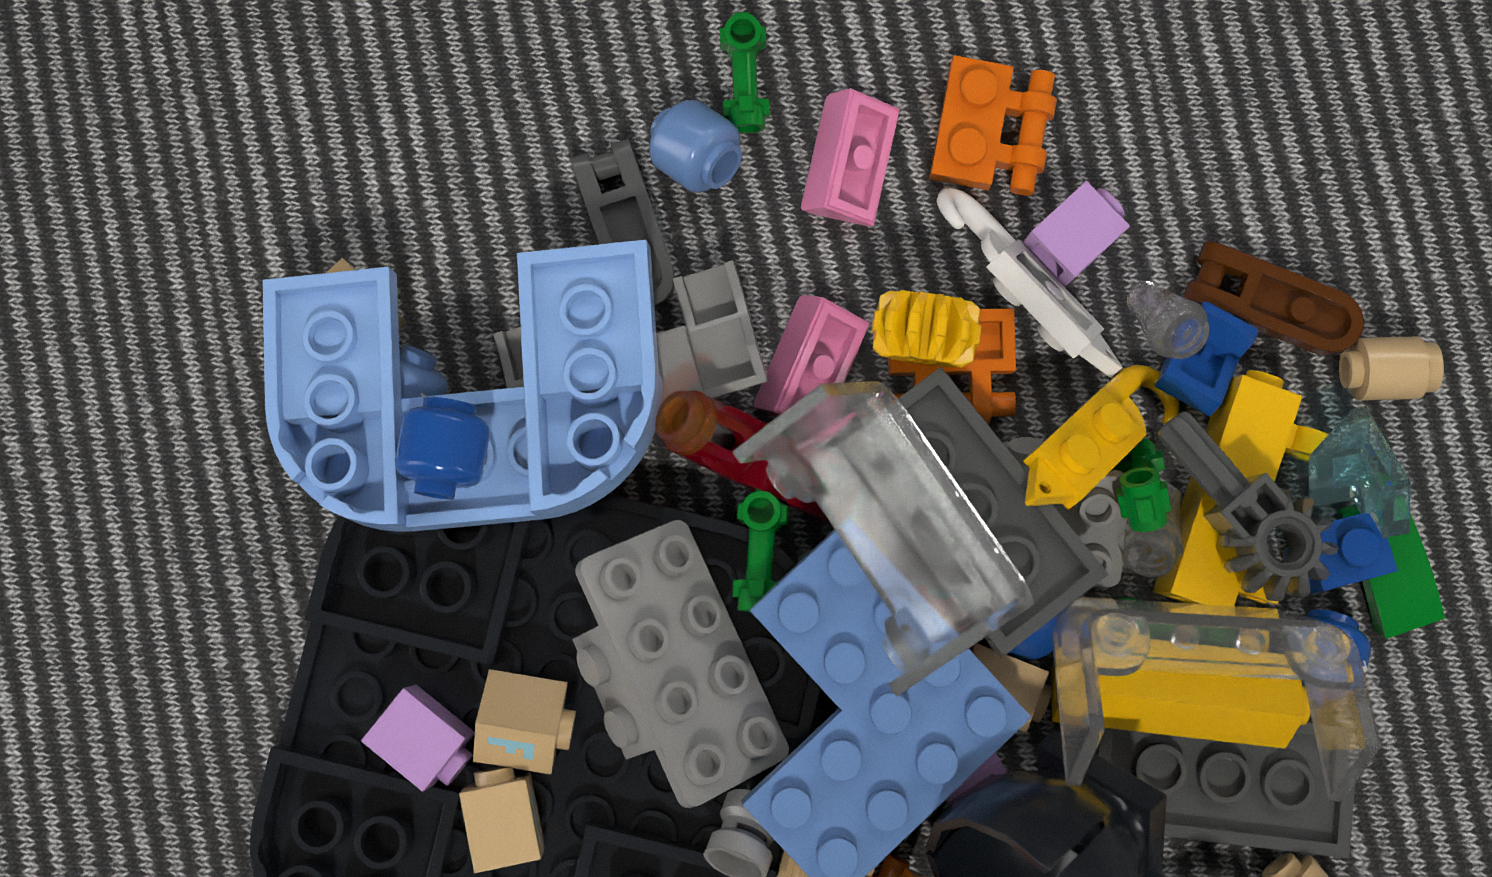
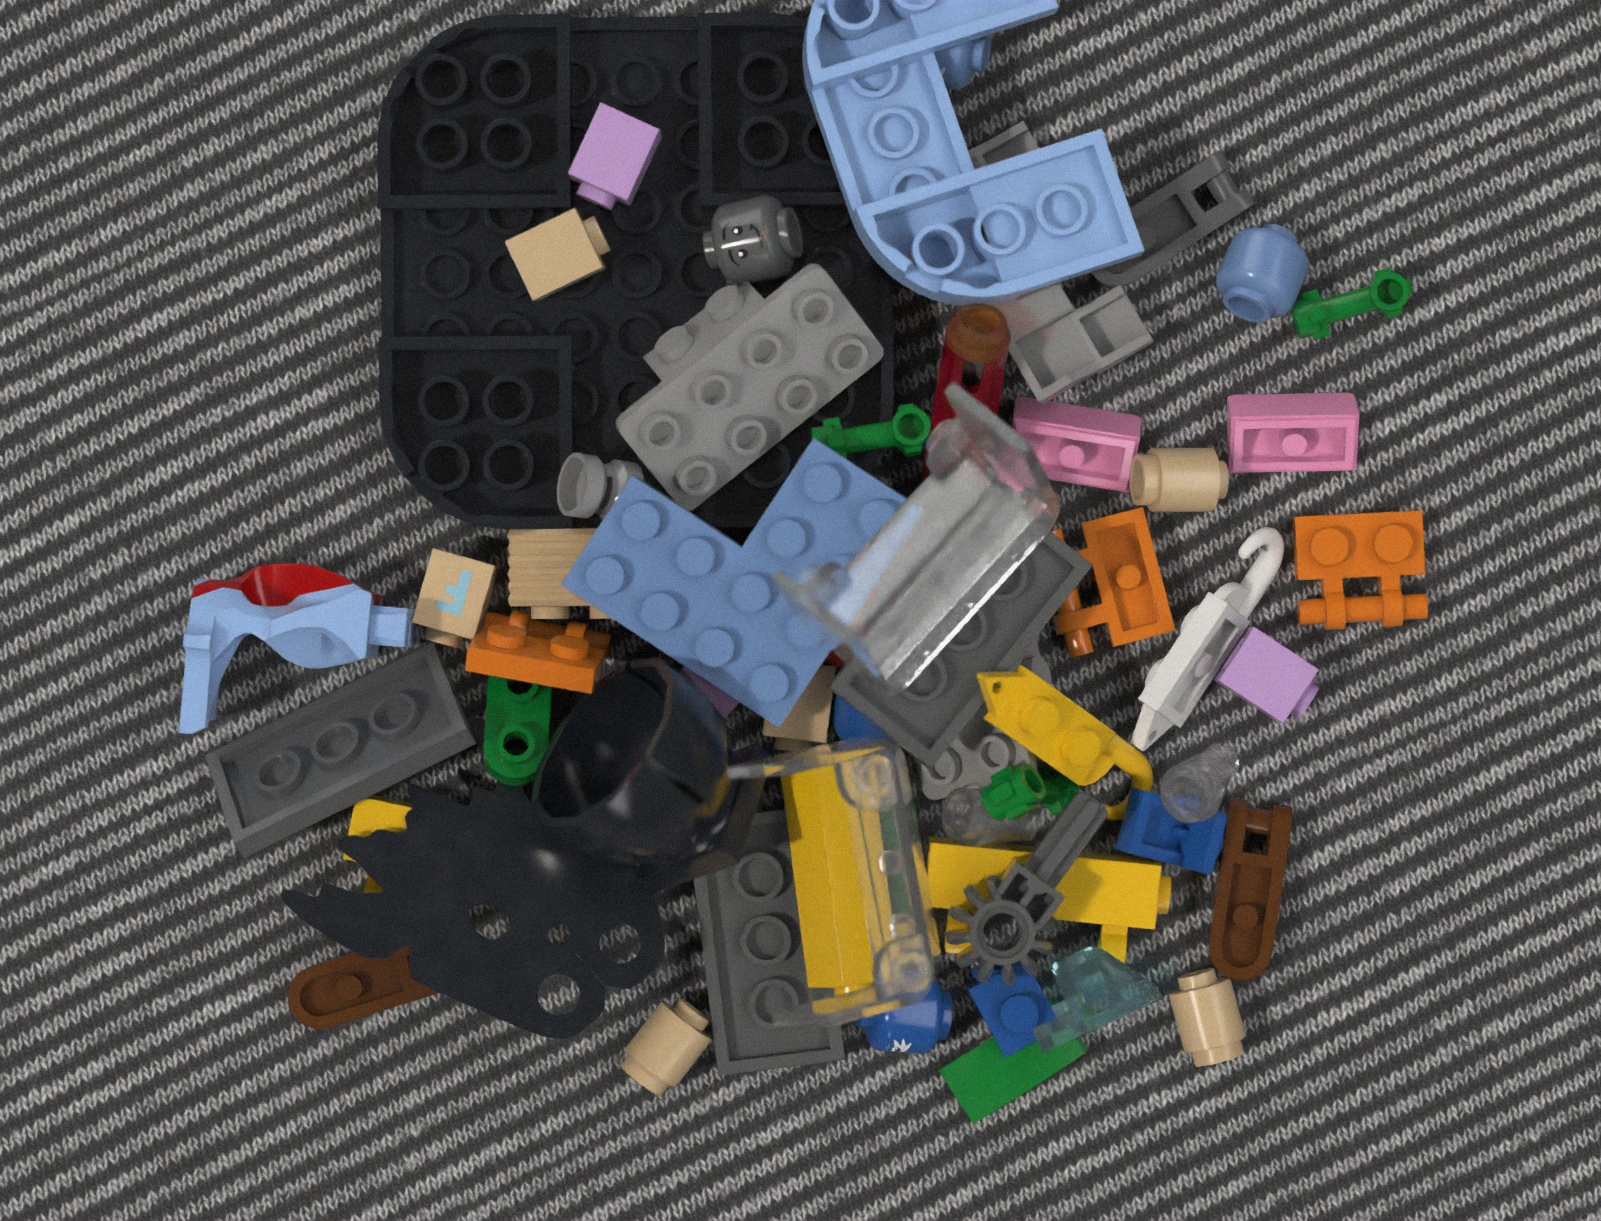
camera: 75 degrees right, 5 degrees up
(442, 447) = (895, 108): blue head -> none
(522, 722) = (654, 250): tan brick -> none
(538, 620) = (753, 240): none -> dark grey head
(870, 267) = (1178, 479): none -> tan brick
(926, 328) = (1127, 543): yellow gear -> none

